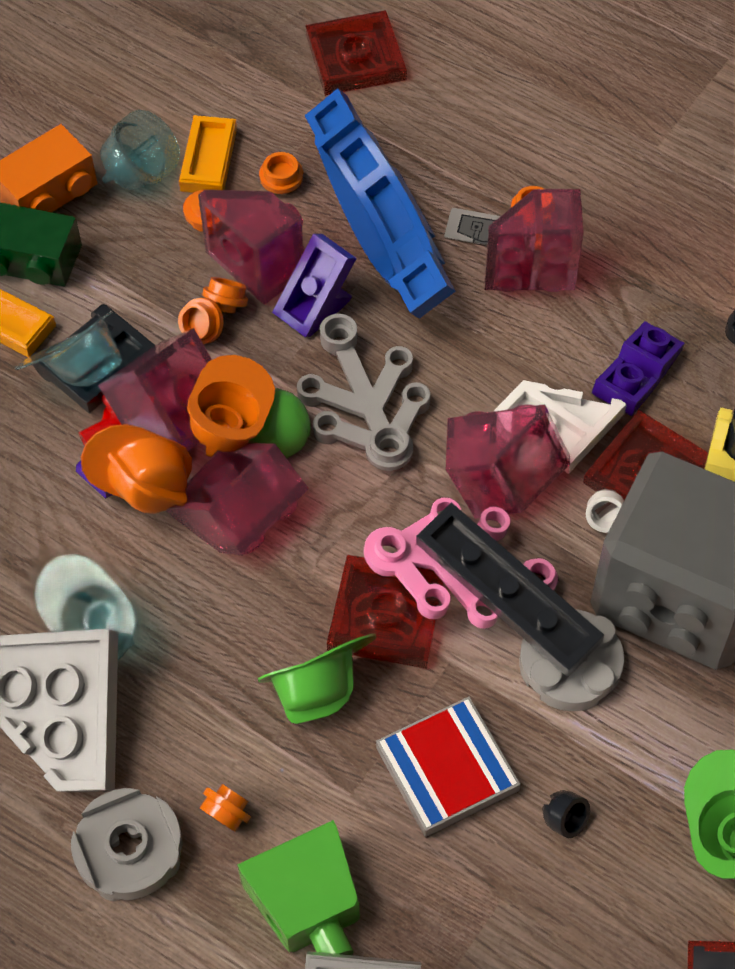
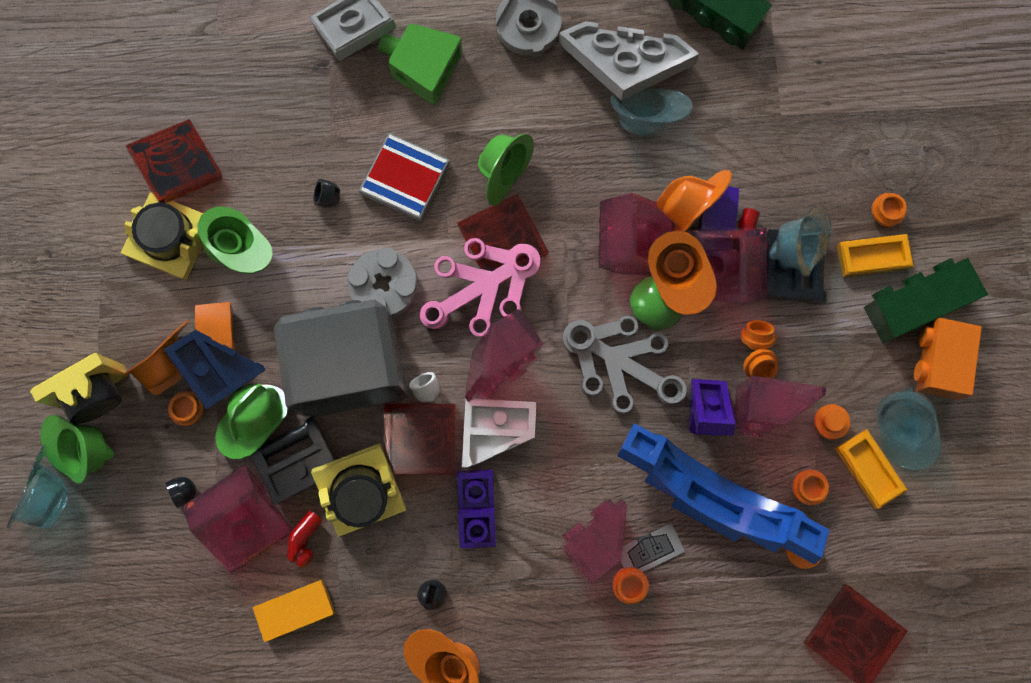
camera: 140 degrees right, 20 degrees up
(225, 807) = (495, 71): orange plate -> none
(510, 589) = (437, 280): black plate -> none

